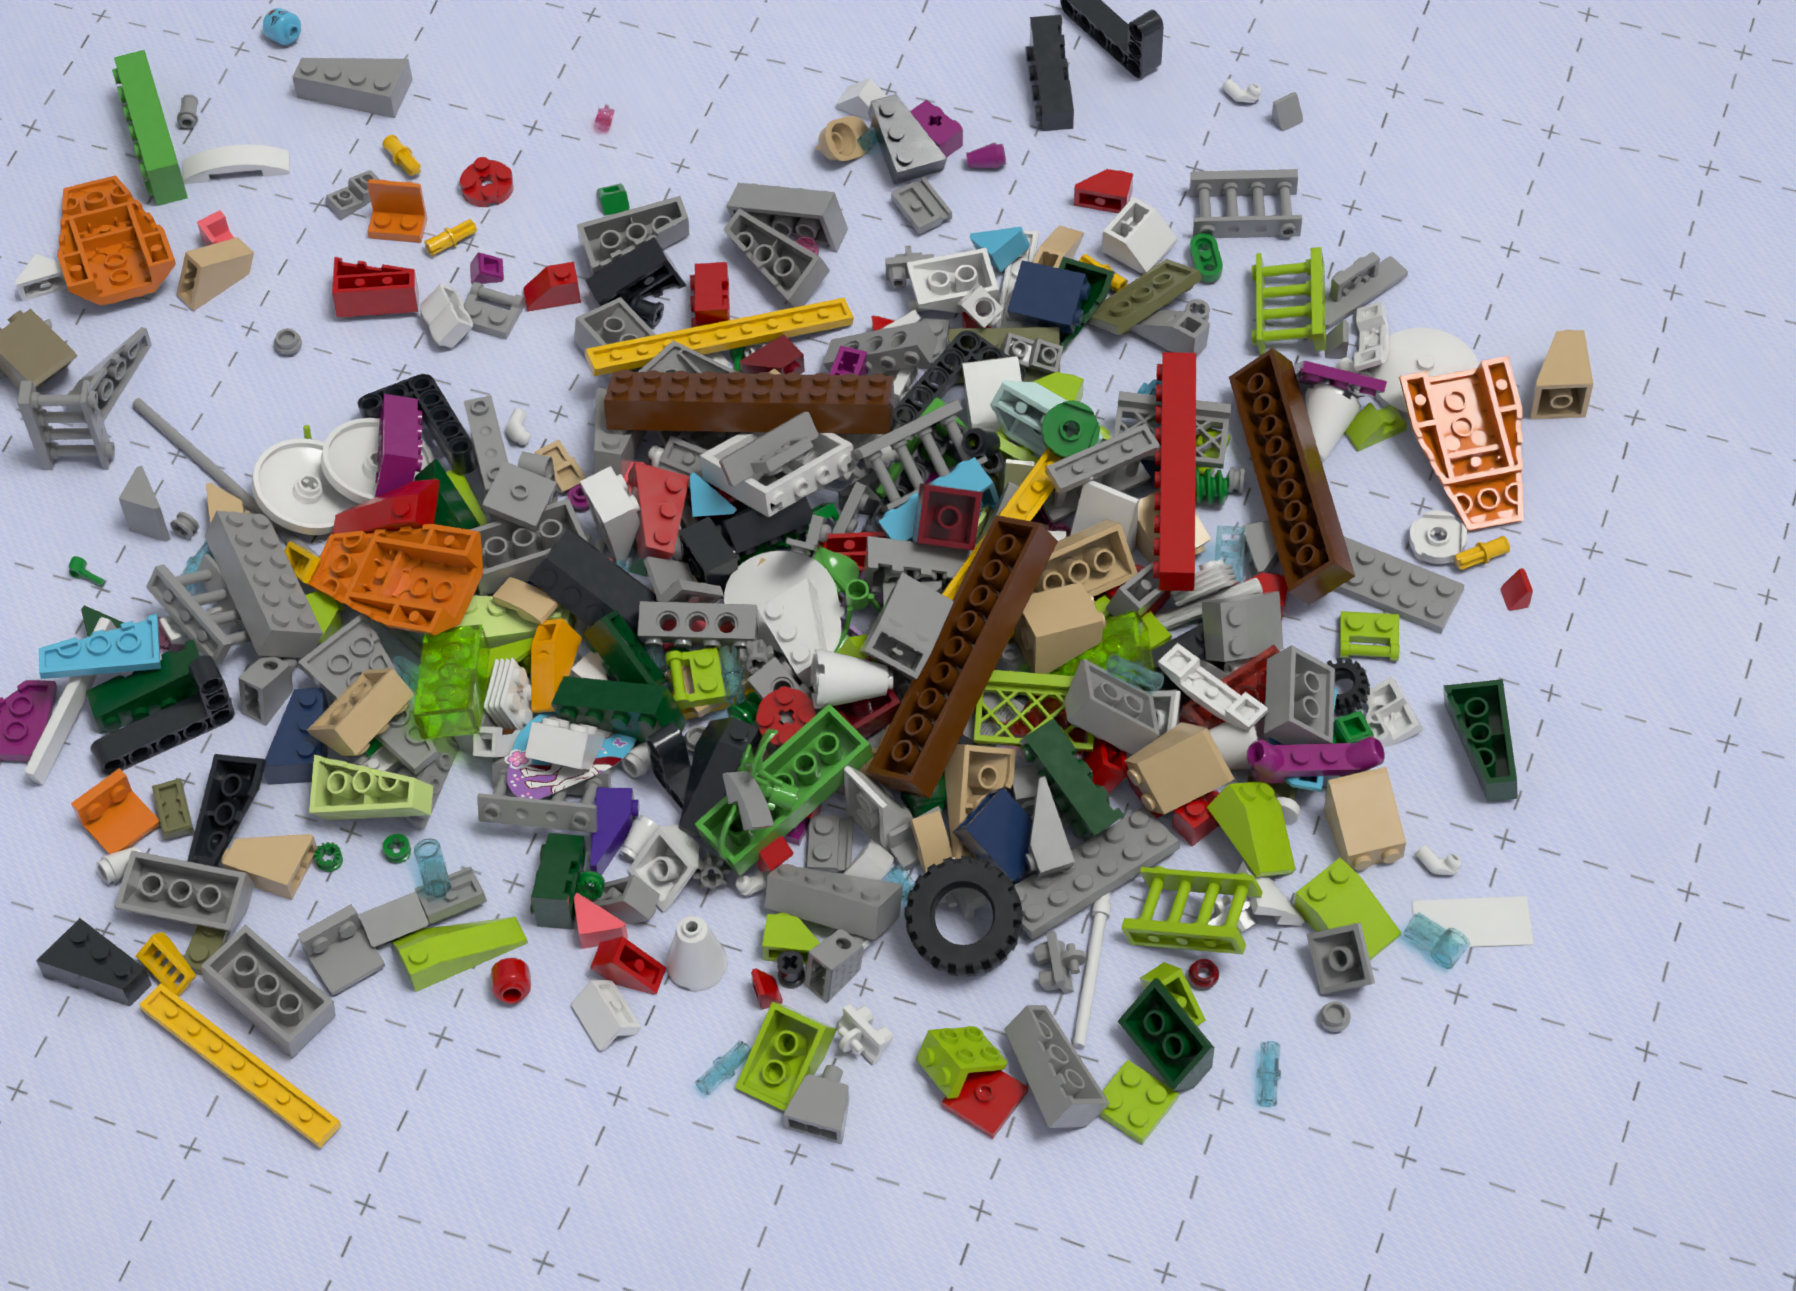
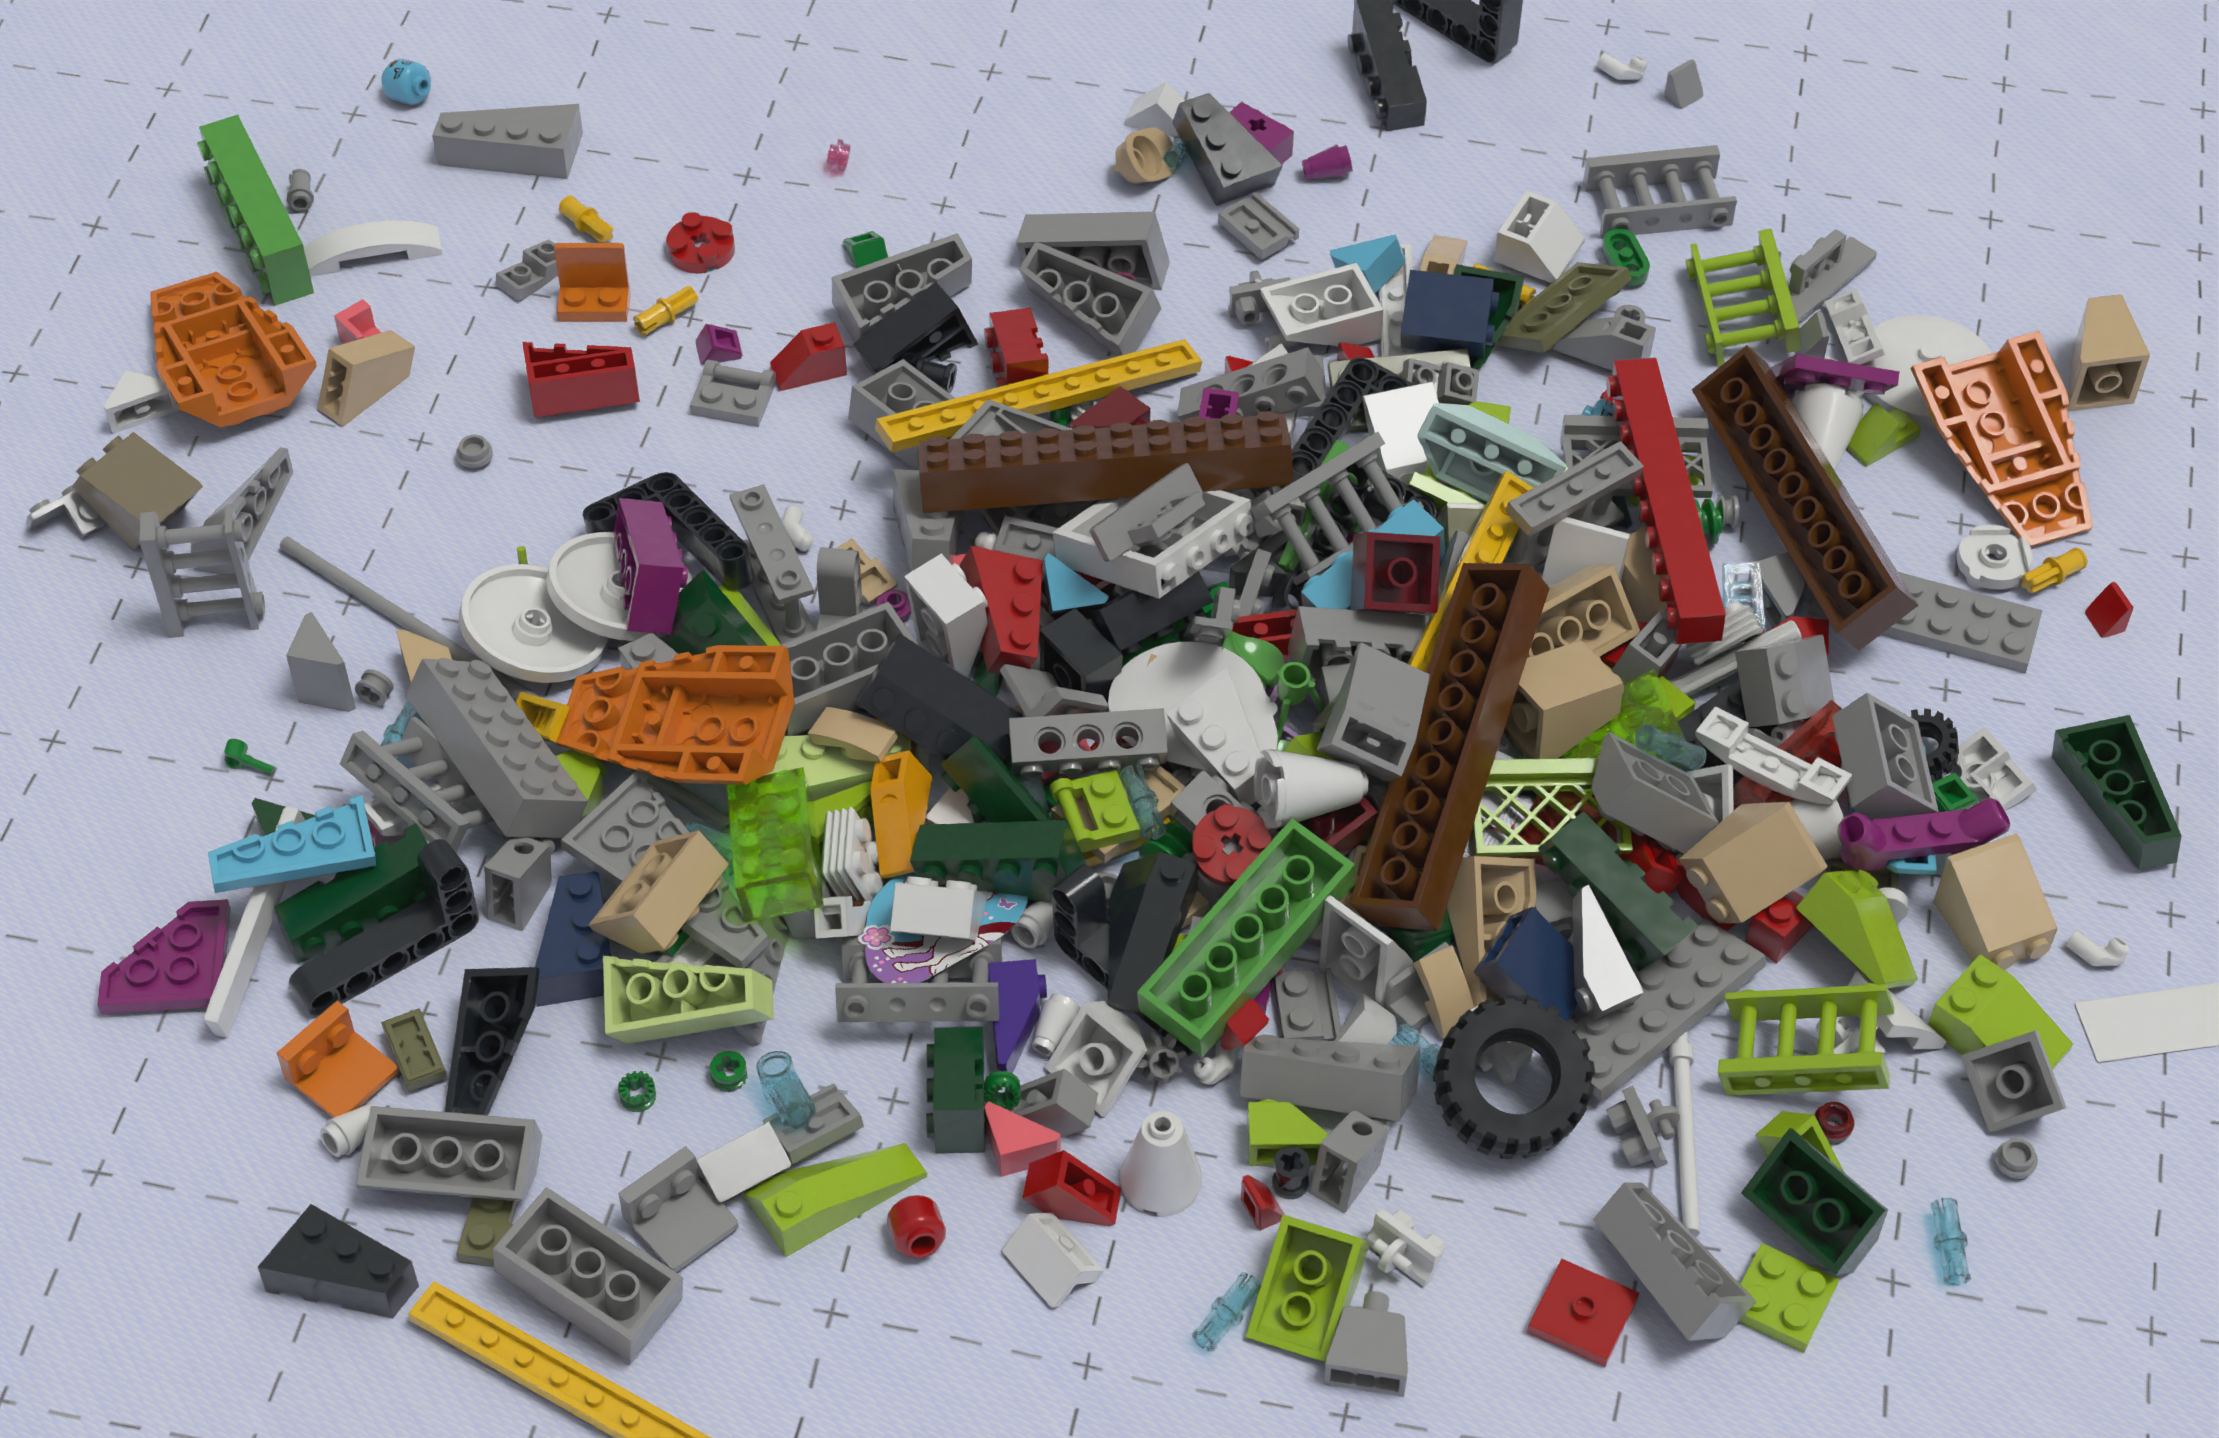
camera: 10 degrees left, 5 degrees down
(148, 958) = (408, 1246): yellow slope -> none
(272, 862) = (565, 1103): tan slope -> none
(401, 507) = (674, 629): red wedge -> none
(446, 316) = (678, 402): white brick -> none
(518, 496) = (825, 602): light grey plate -> none
(750, 800) = (1204, 937): light grey slope -> none
(755, 655) = (1172, 774): light grey gear -> none
(777, 791) = (1246, 938): bright green plant -> none
(953, 1053) = (1535, 1261): lime bracket -> none
(970, 300) = (1351, 331): white brick -> none
(981, 442) = (1402, 482): black brick -> none
(1062, 414) = (1514, 439): green plate -> none
(1105, 191) = (1483, 191): red slope -> none
(1369, 628) = (1938, 675): lime plate -> none
(1443, 944) = (2135, 1052): clear light blue piece -> none

